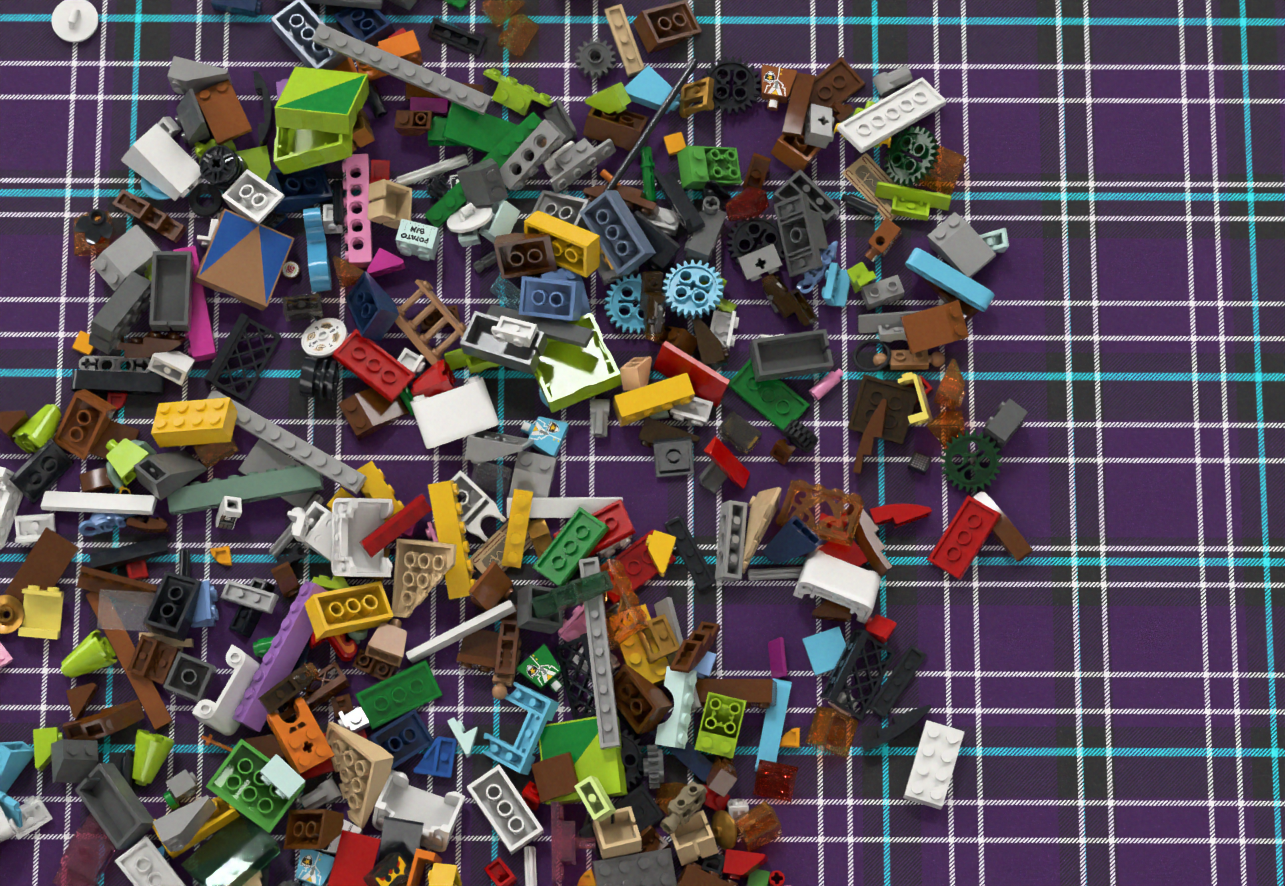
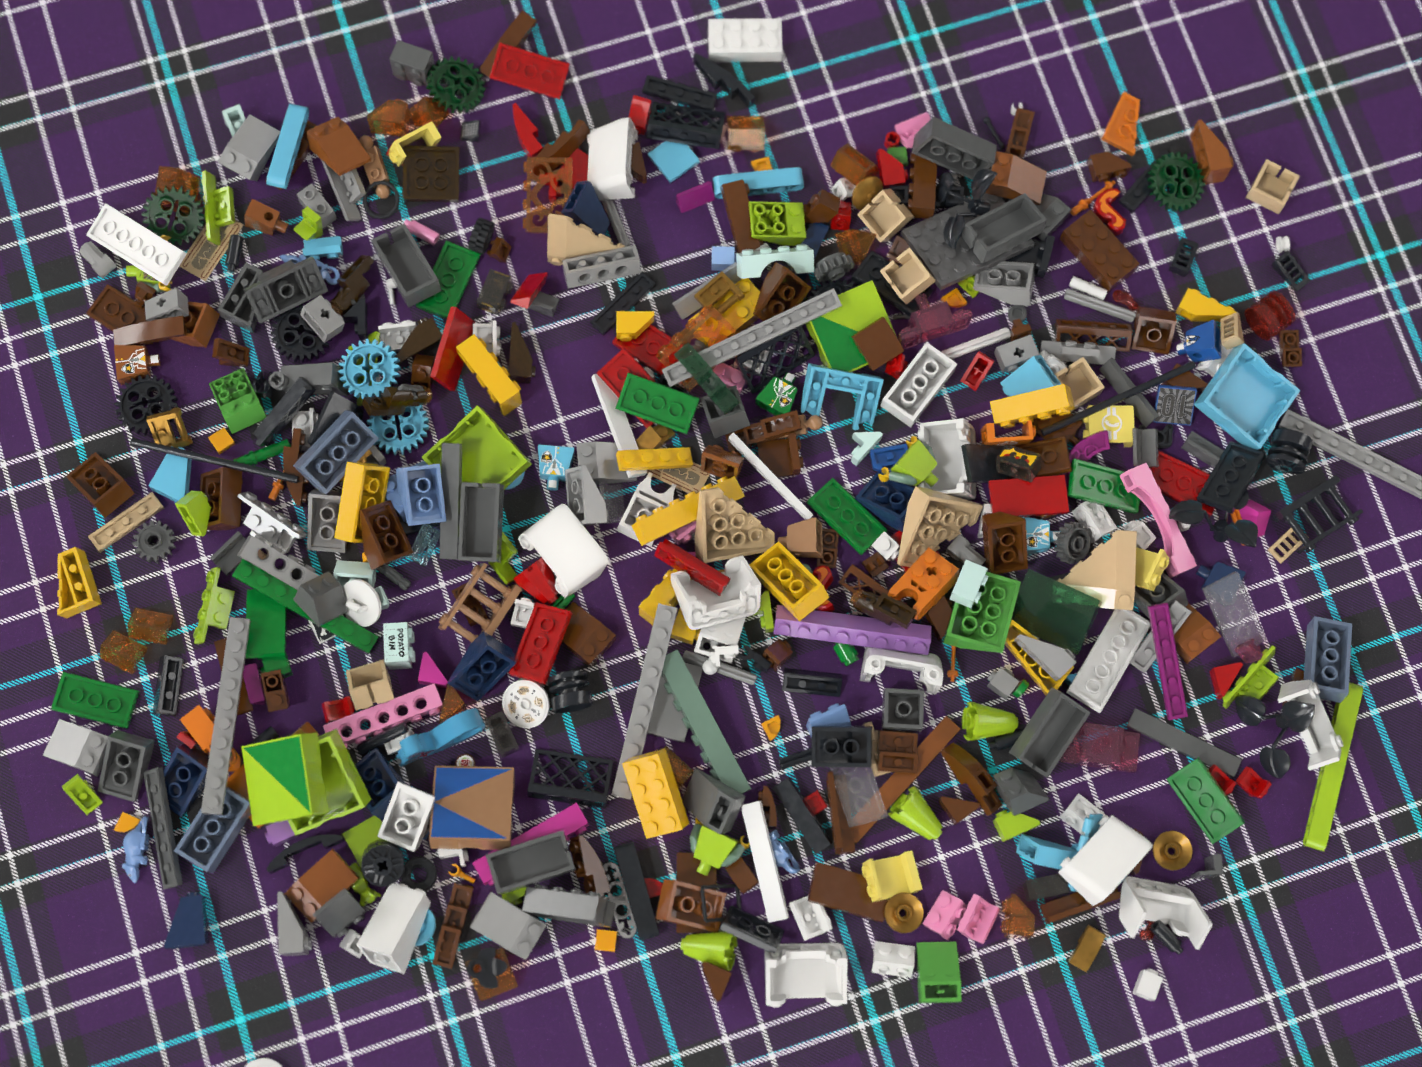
camera: 115 degrees left, 0 degrees up
(92, 450) = (715, 887): none -> black piece
(171, 365) = (604, 839): white slope -> none
(193, 236) = (459, 873): none -> light orange hand
(227, 515) = (731, 731): white leg -> none
(249, 596) = (805, 683): light grey tile -> none
(423, 773) = (913, 465): none -> lime torso
(432, 170) = (319, 662): white axle -> none
(437, 186) = (335, 648): black gear -> none
(514, 331) = (471, 507): white bracket -> none
(595, 798) = (888, 296): yellowish green brick -> none
(599, 417) = (515, 423): light grey piece -> none
(636, 373) = (467, 399): light nougat slope -> none
(673, 456) = (538, 341): black plate -> none
(684, 806) = (863, 227): dark tan brick -> none
(695, 648) = (715, 261): reddish brown slope -> none
(747, 204) = (266, 349): clear red slope -> none
(756, 302) = (358, 315): none -> black slope
(775, 780) = (807, 163): clear red plate -> none
(874, 429) = (454, 171): reddish brown slope -> none

